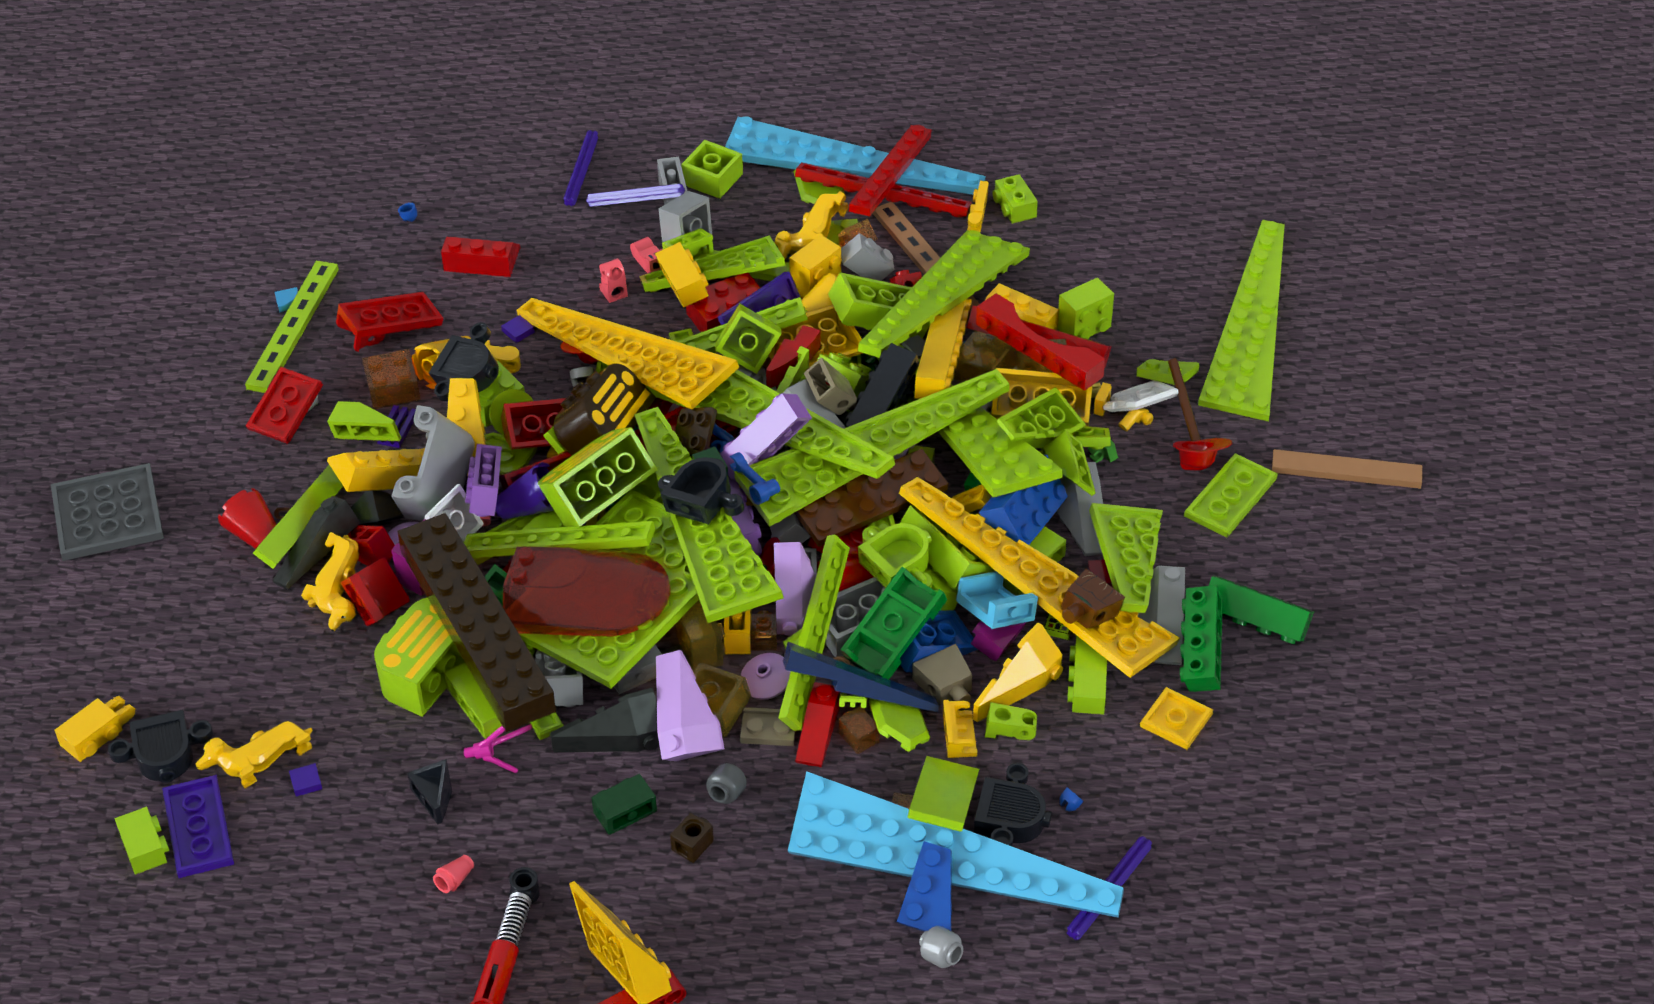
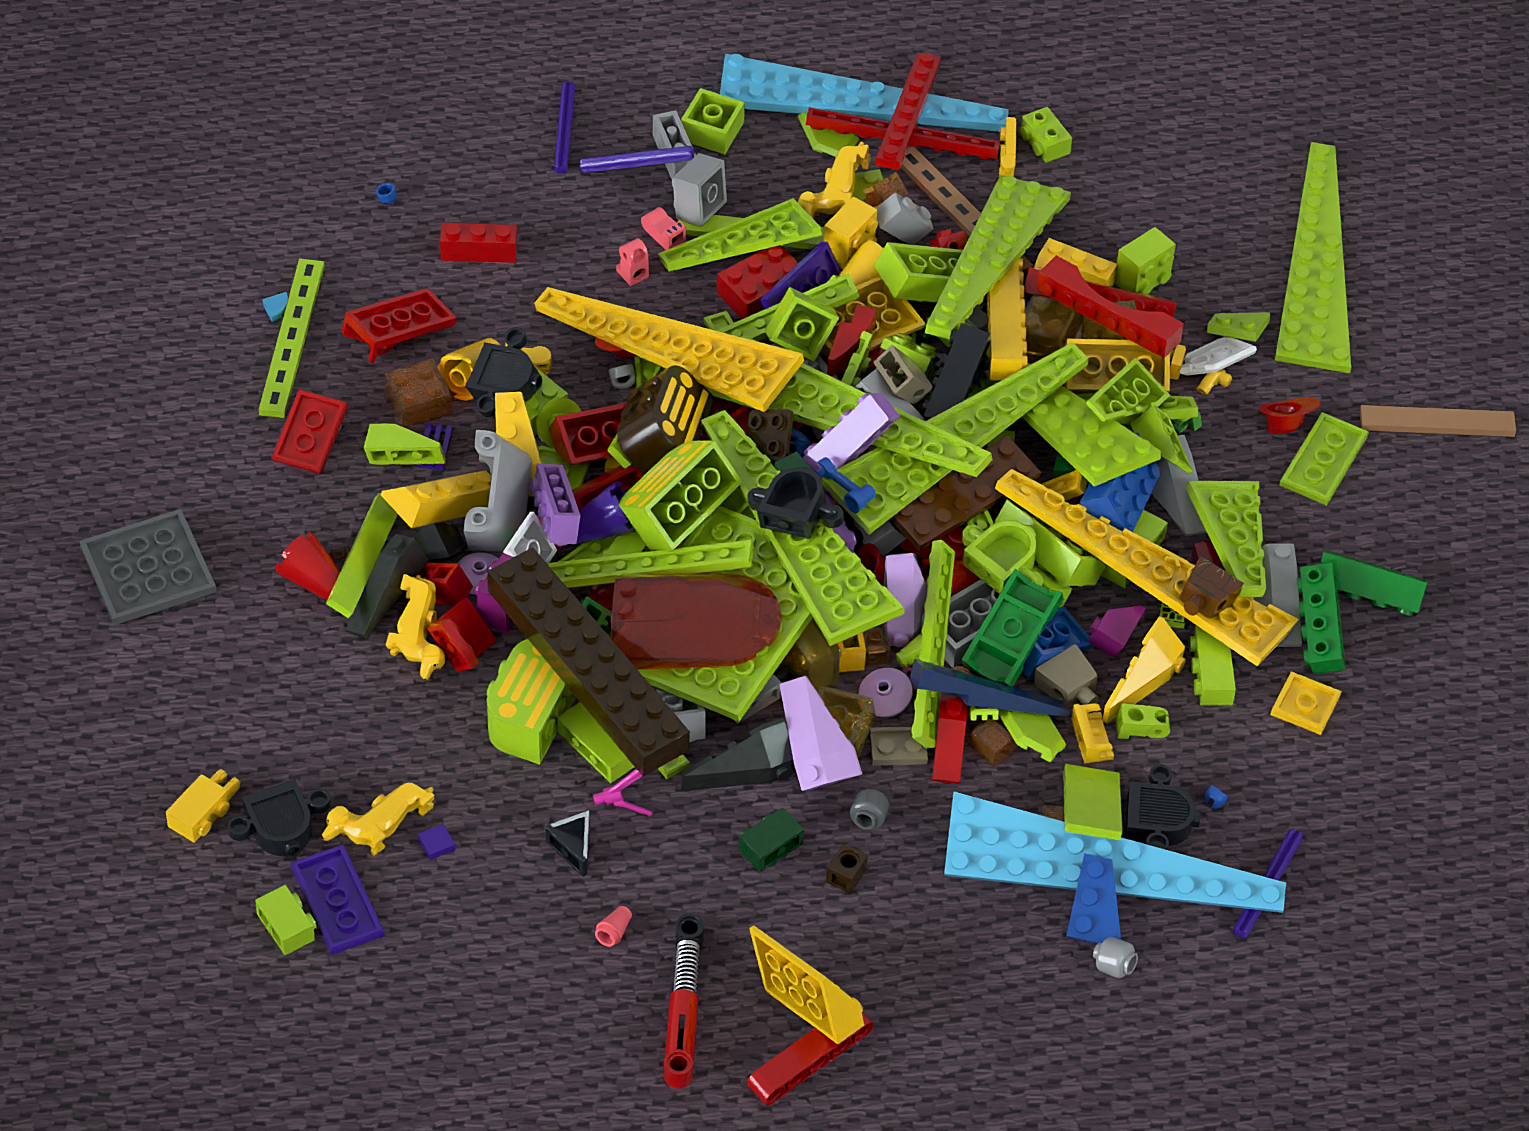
camera: 10 degrees left, 5 degrees up
(517, 329) = (539, 324): dark purple tile -> none
(682, 274) = (712, 252): yellow brick -> none
(697, 242) = (706, 216): lime hinge -> none
(993, 603) = (1109, 599): medium azure panel -> none
(1184, 400) = (1262, 358): reddish brown bar -> none

